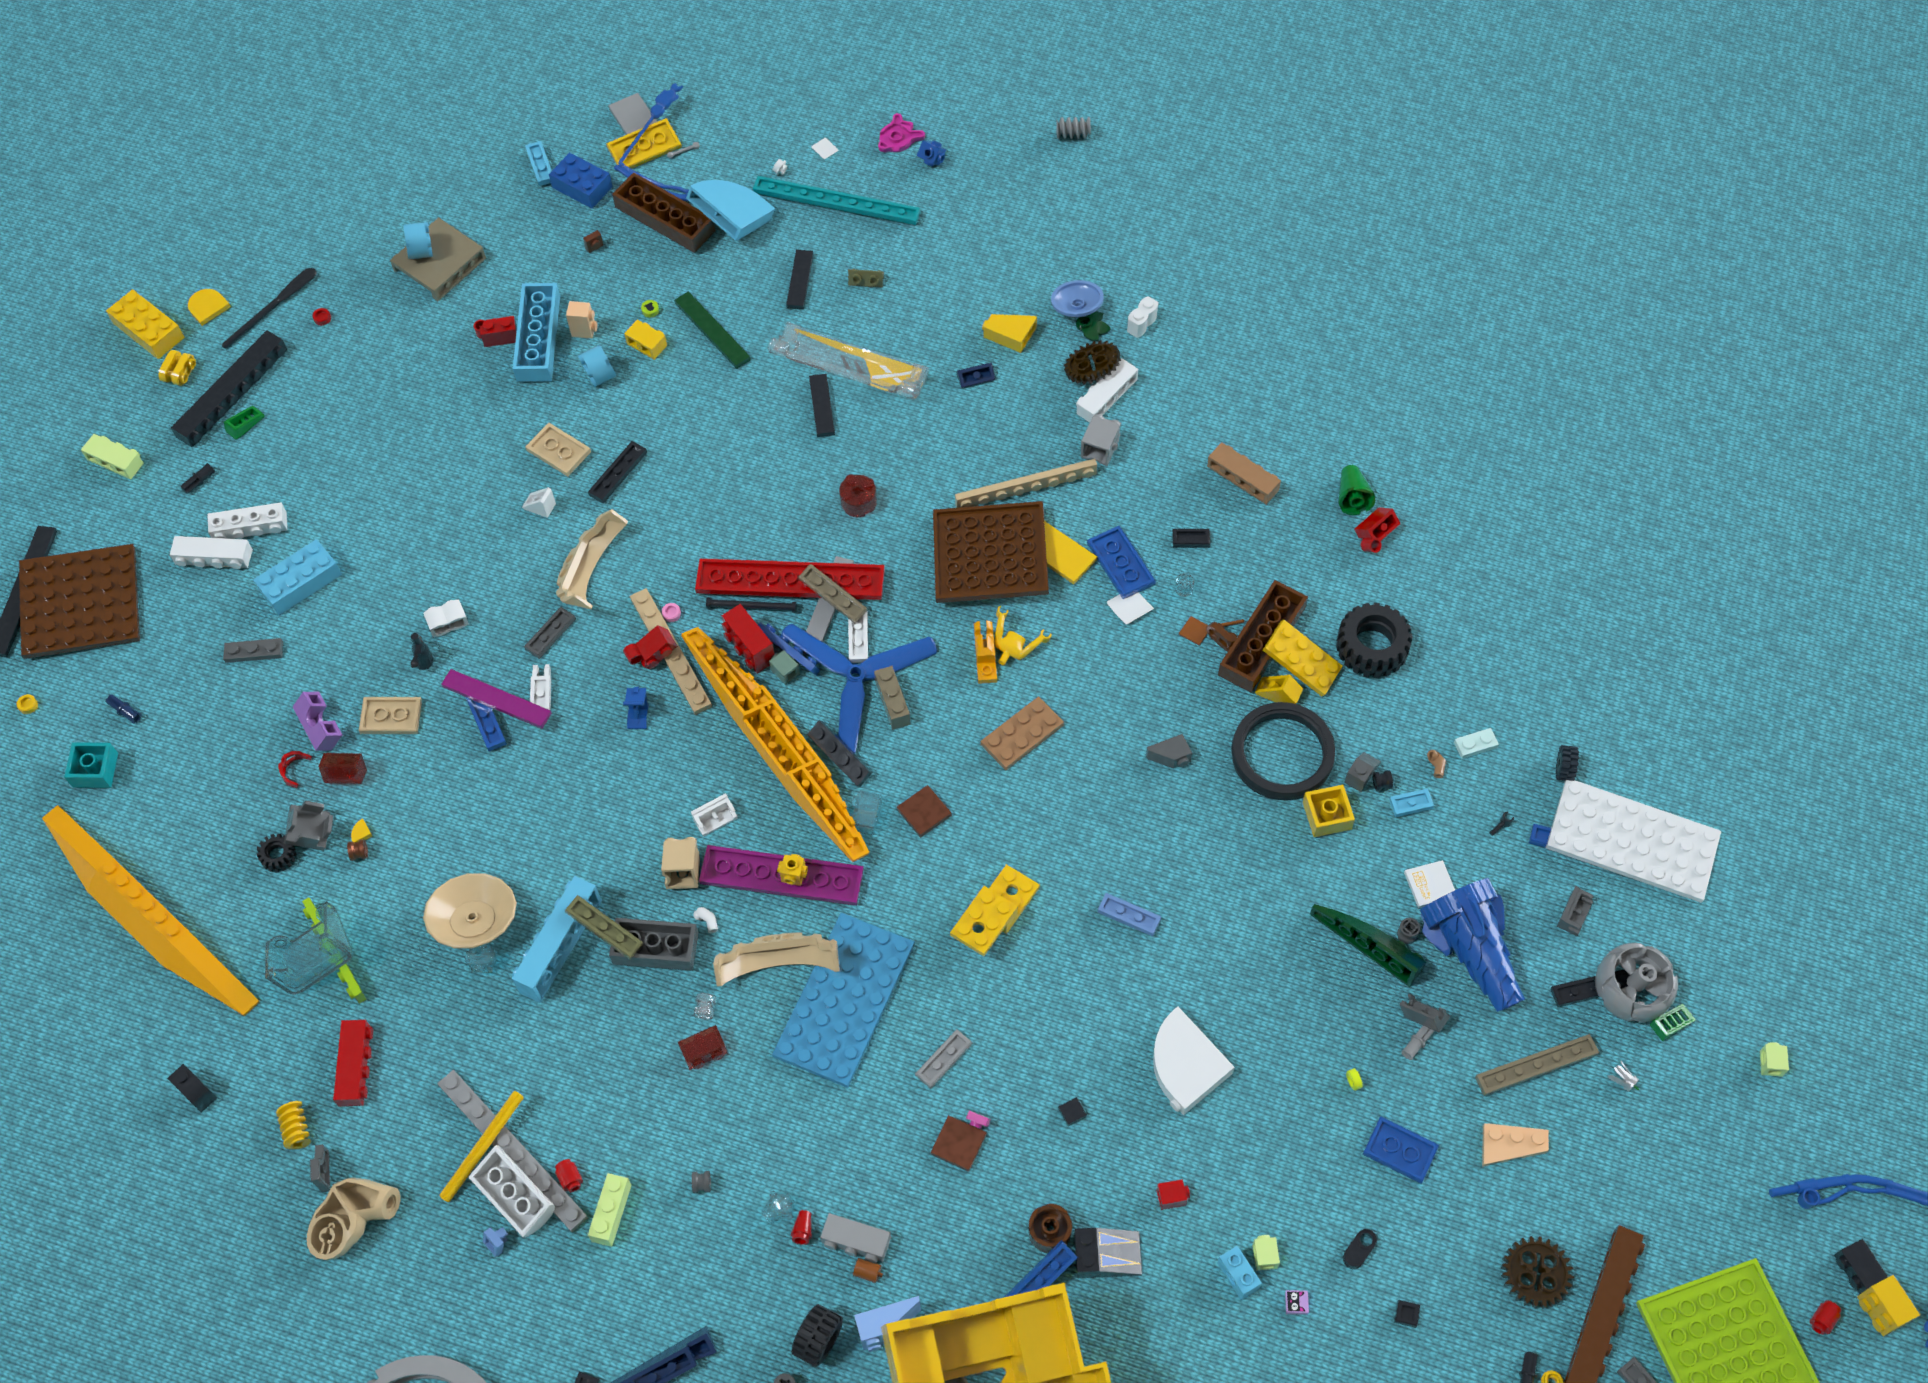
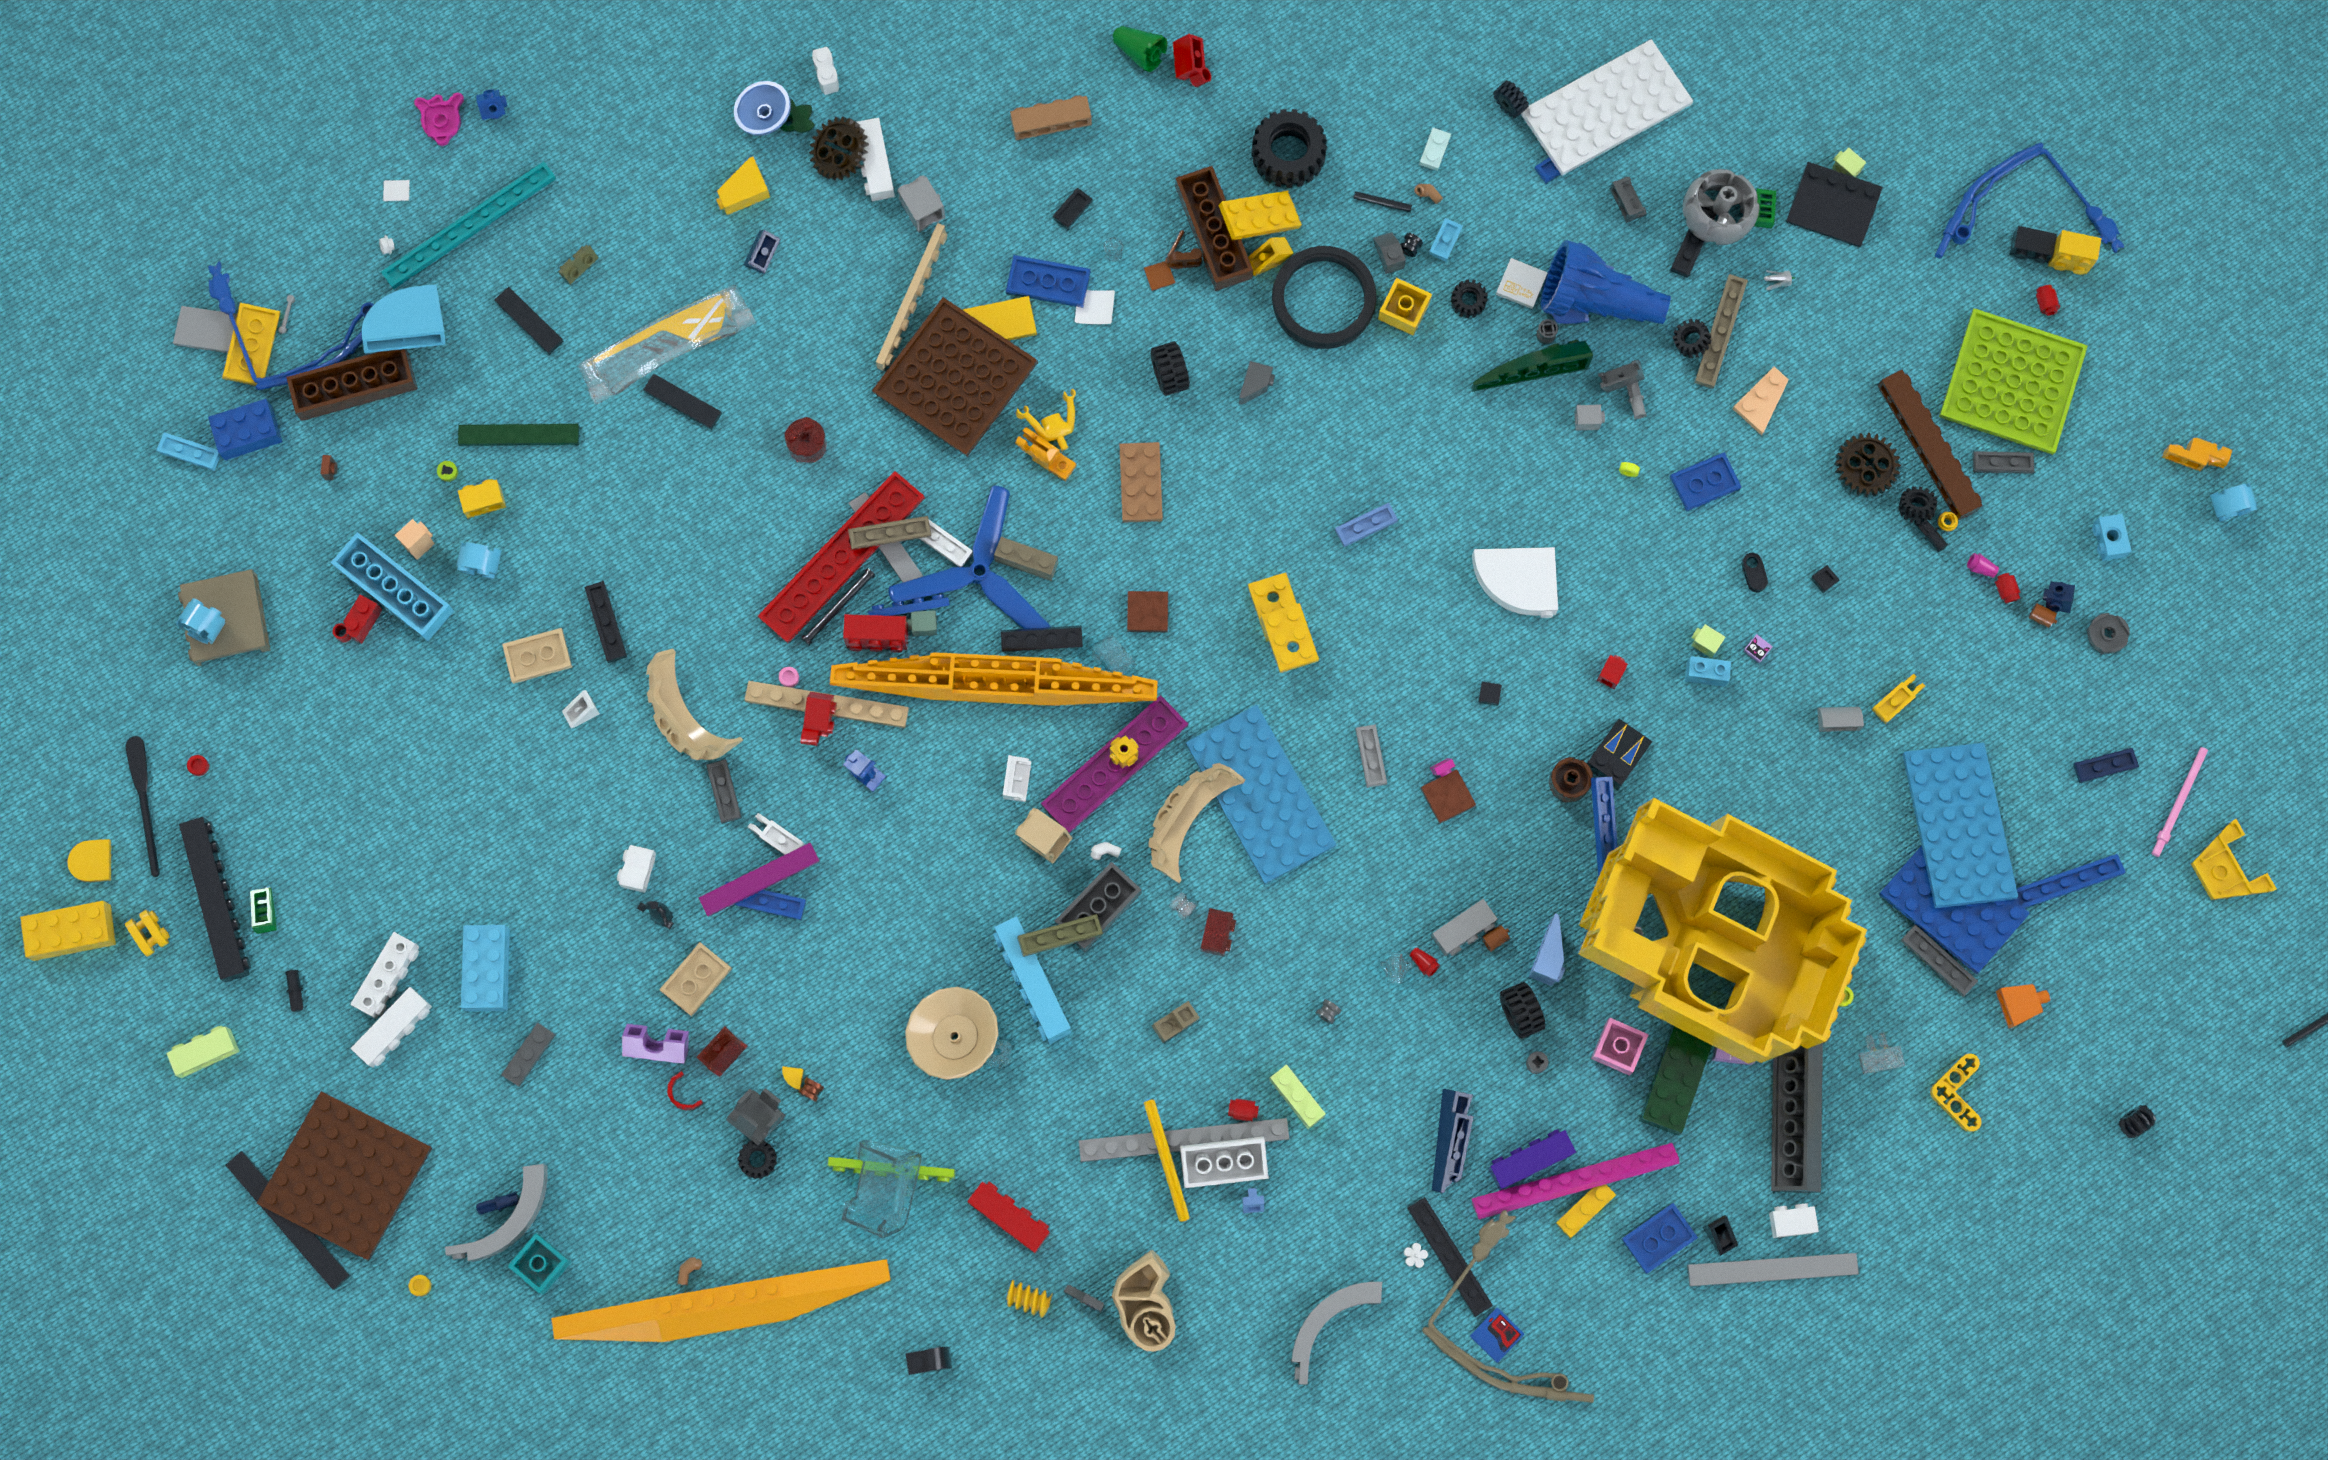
camera: 55 degrees left, 15 degrees up
(117, 731) = (525, 1213): none -> light grey arch
(155, 866) = (686, 1268): none -> medium nougat arm
(606, 1072) = (1175, 1021): none -> dark tan slope
(1124, 683) = (1170, 368): none -> black tyre
(1368, 1015) = (1588, 417): none -> light grey brick
(1380, 843) = (1471, 287): none -> black tyre
(1398, 737) = (1382, 201): none -> black bar
(1503, 823) = (1515, 187): black hand -> none
(1508, 1036) = (1687, 329): none -> black tyre
(1547, 1335) = (1916, 513): none -> black tyre
(1730, 1073) = (1834, 204): none -> black slope

